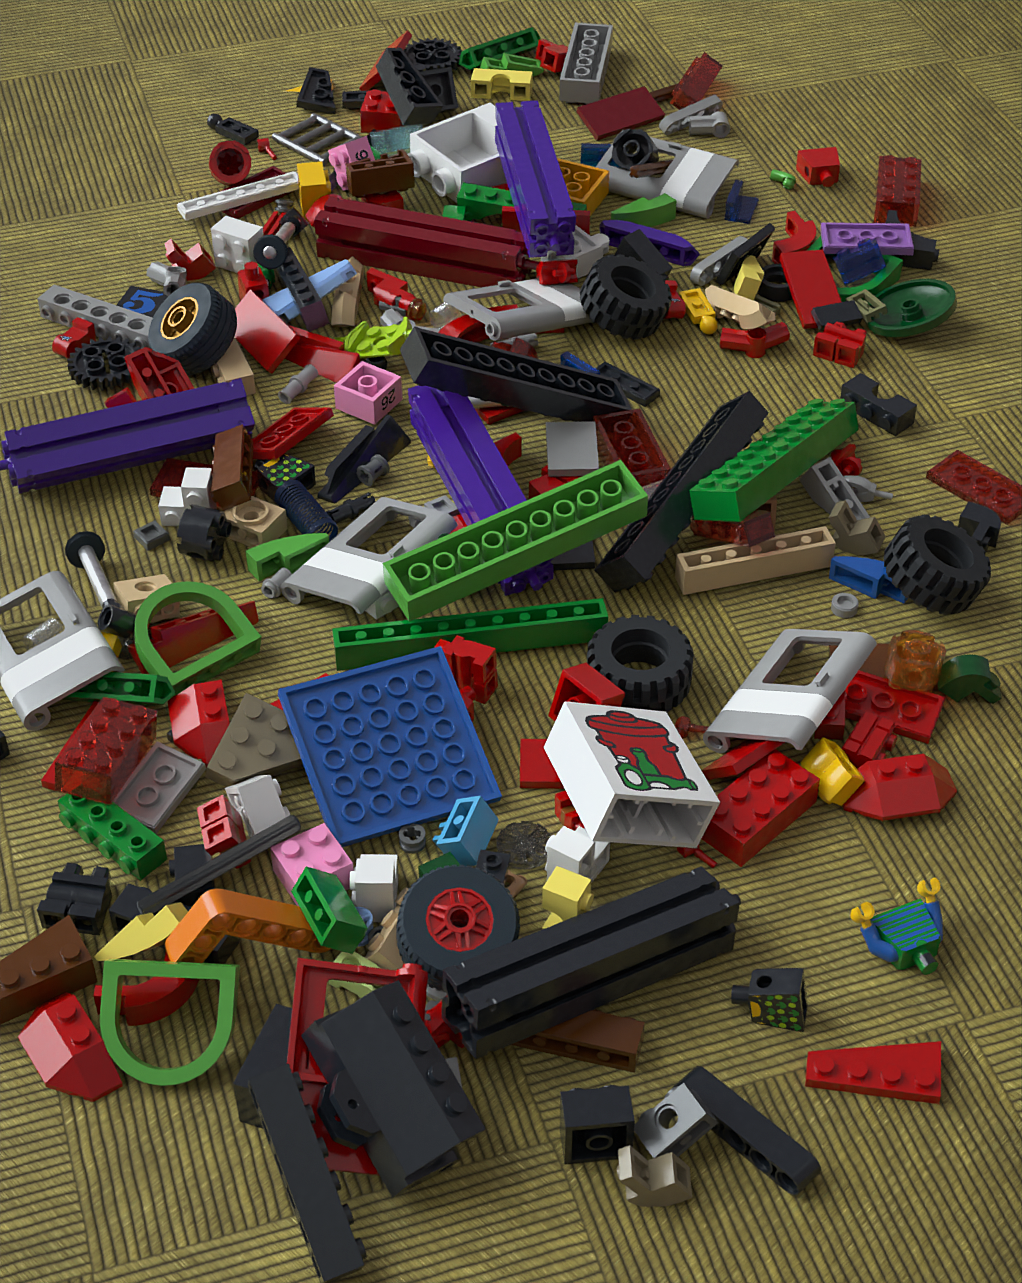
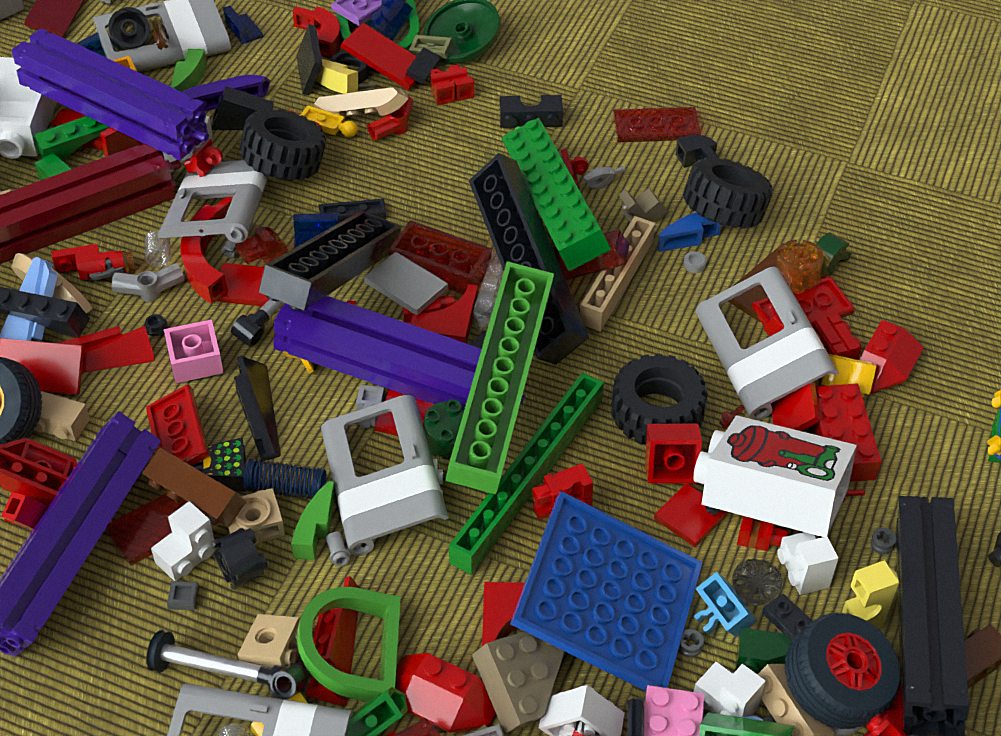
camera: 50 degrees left, 5 degrees up
(298, 384) = (120, 386): light grey pin -> none
(351, 508) = (306, 448): black pin -> none
(373, 470) = (279, 407): dark grey bush -> none
(376, 340) = (127, 311): lime plate -> none
(713, 264) = (290, 76): light grey beam -> none
(828, 486) = (597, 191): light grey slope -> none

